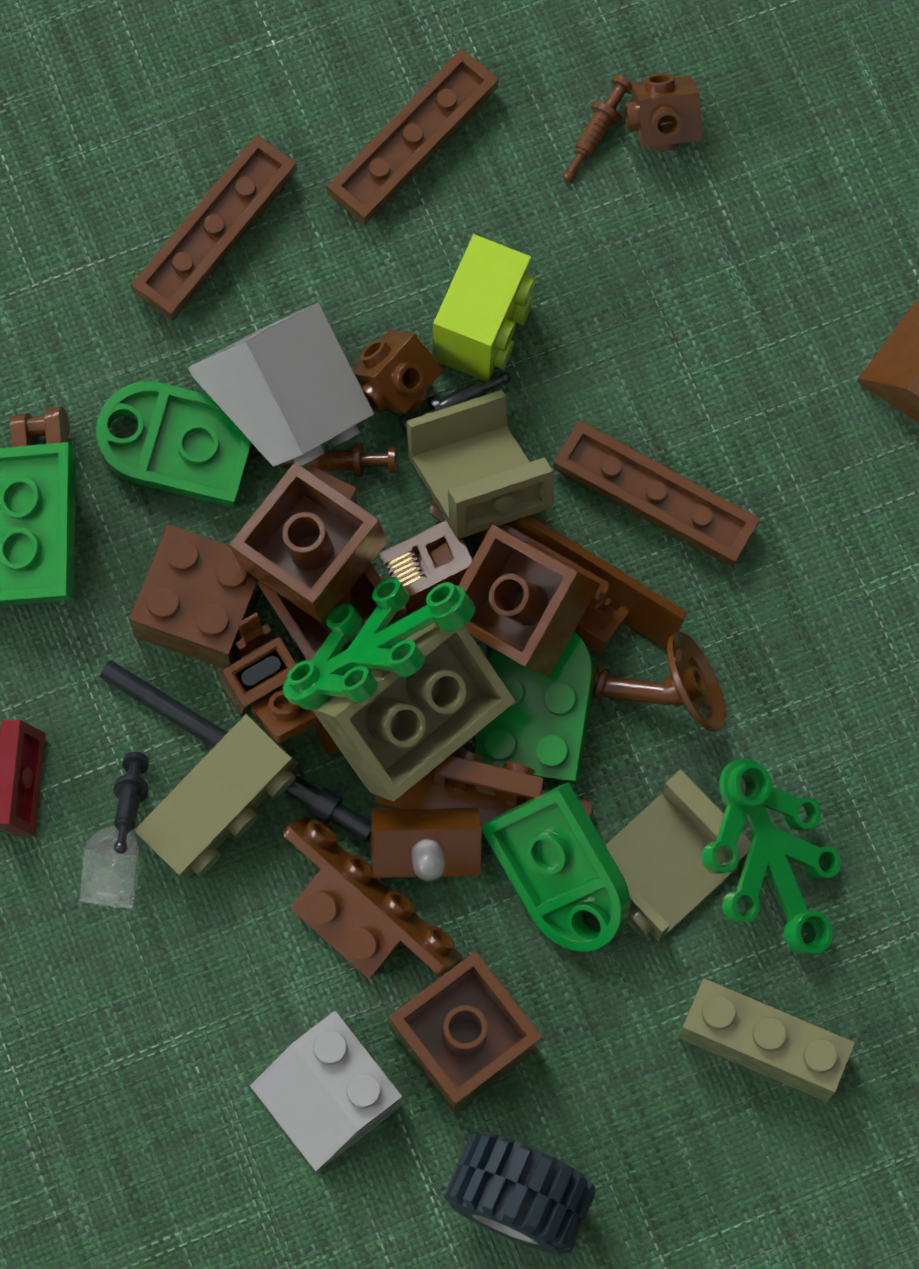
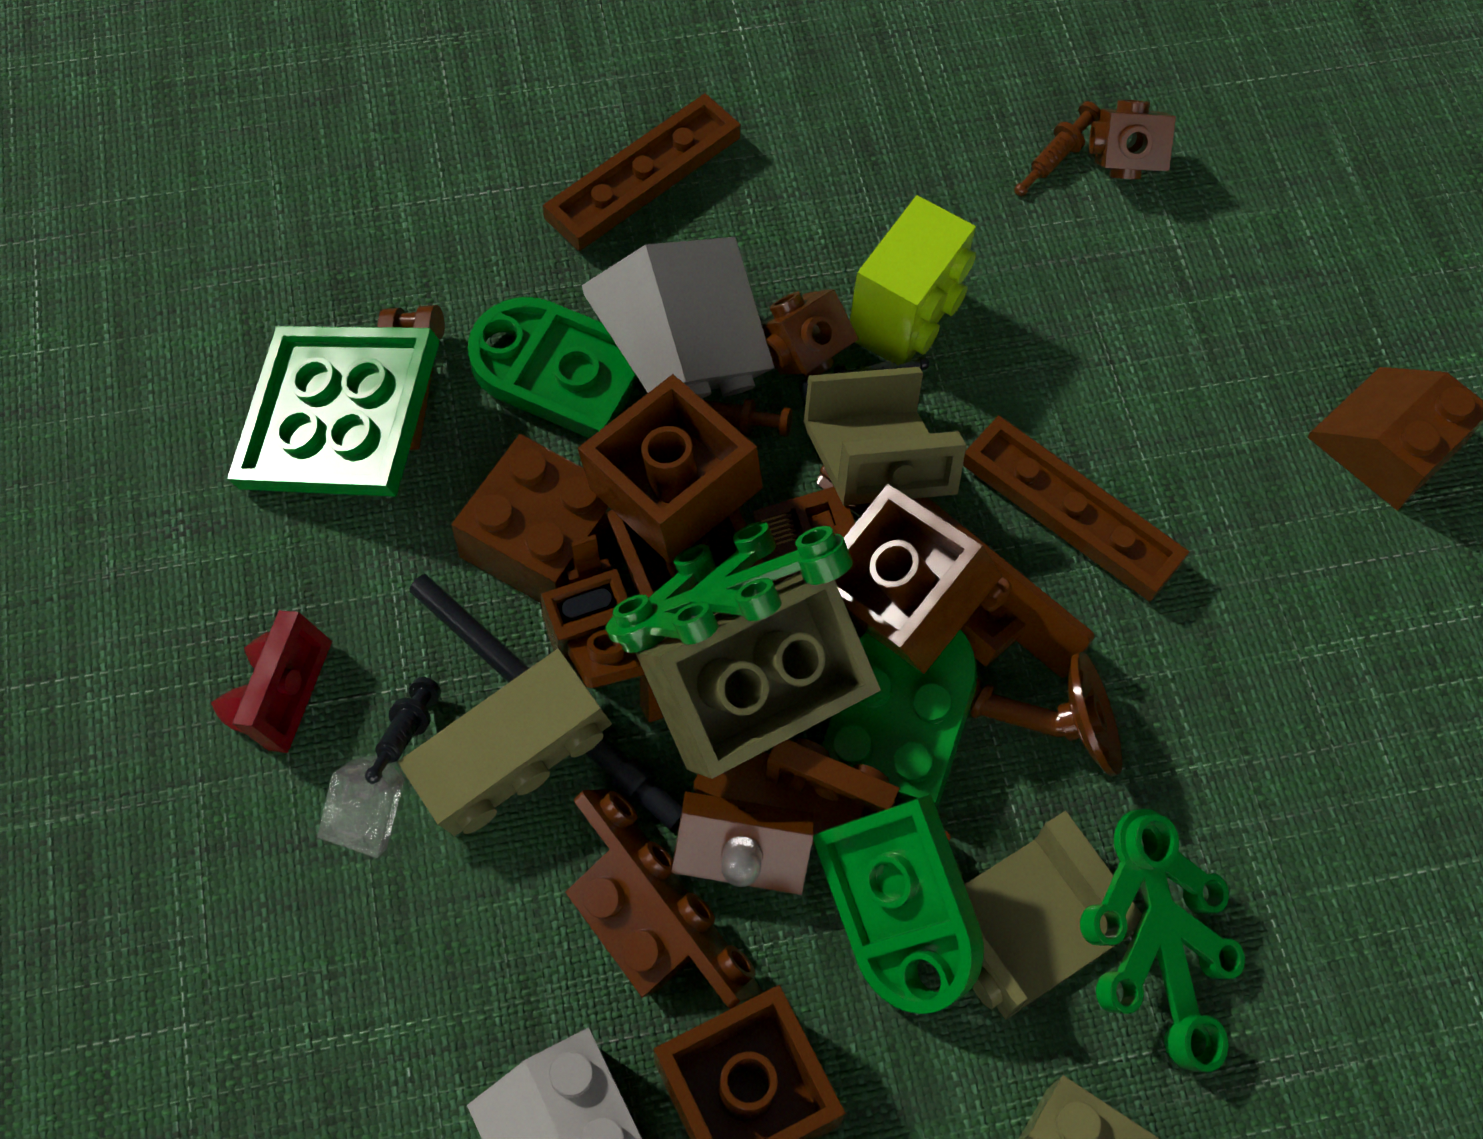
camera: 10 degrees right, 10 degrees down
(412, 136) = (864, 125): reddish brown plate -> none

